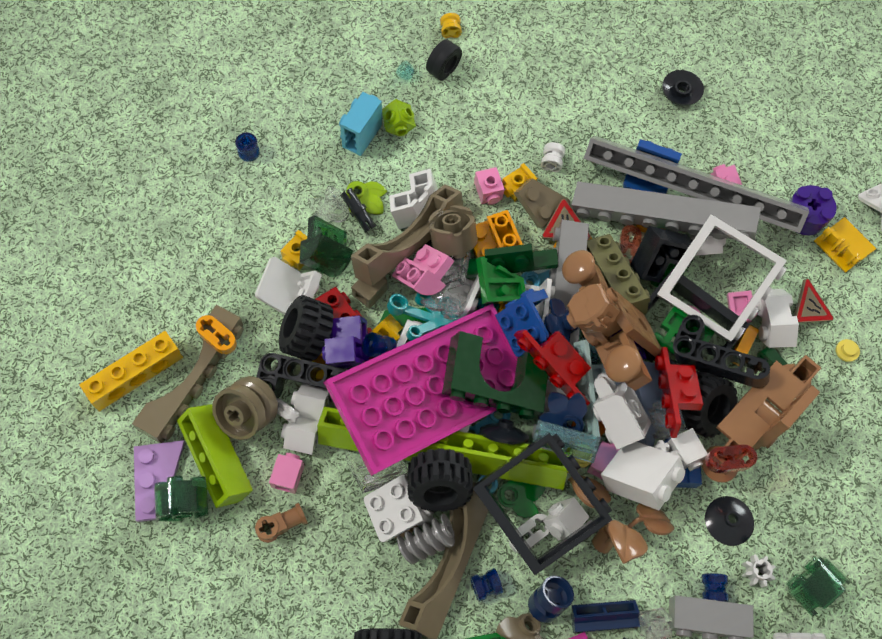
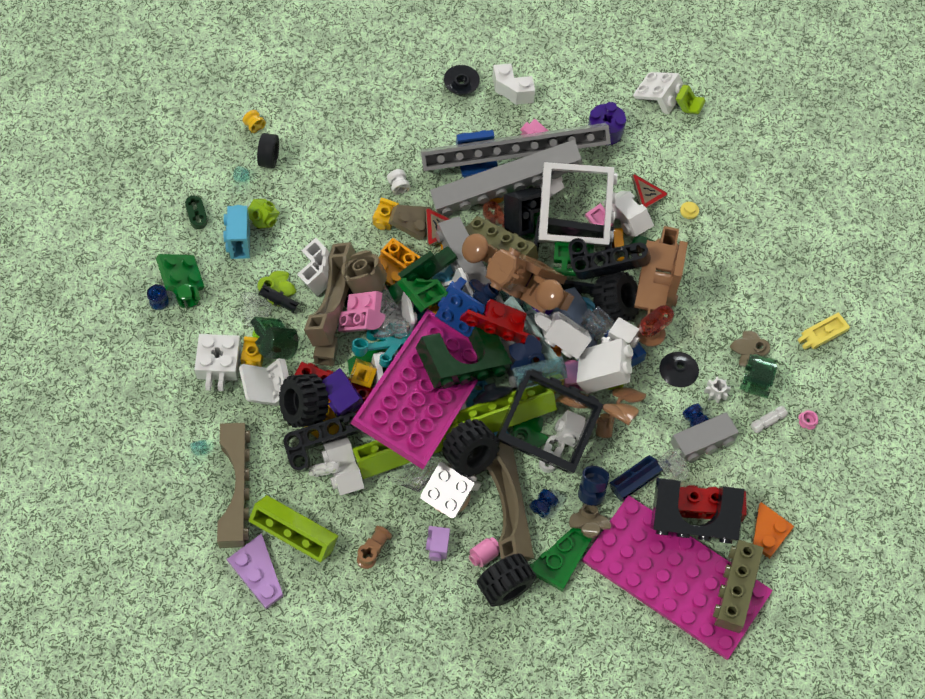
camera: 30 degrees left, 5 degrees down
(131, 371) = (187, 507): yellow brick -> none
(181, 498) = (291, 570): clear green brick -> none
(186, 314) = (198, 445): none -> clear light blue hinge
(212, 338) = (237, 443): light orange beam -> none
(245, 407) = (295, 481): dark tan wheel -> none
(259, 238) = (218, 359): none -> white hinge
(281, 139) = (181, 277): none -> green plate
(287, 473) = (354, 511): bright pink brick -> none
(344, 85) = (199, 211): none -> dark green beam
(347, 560) = (437, 542): none -> lavender brick
(376, 344) = (366, 381): clear blue wheel -> none
(389, 600) = (484, 552): none -> bright pink brick
(426, 542) = (485, 496): light grey piece -> none
(489, 186) = (365, 228): bright pink brick -> none
(679, 390) = (593, 295): red bracket -> none
(734, 126) = (517, 90): none -> white brick
(824, 540) = (748, 346): none -> dark tan plate
(844, 244) = (644, 136): yellow hinge -> none

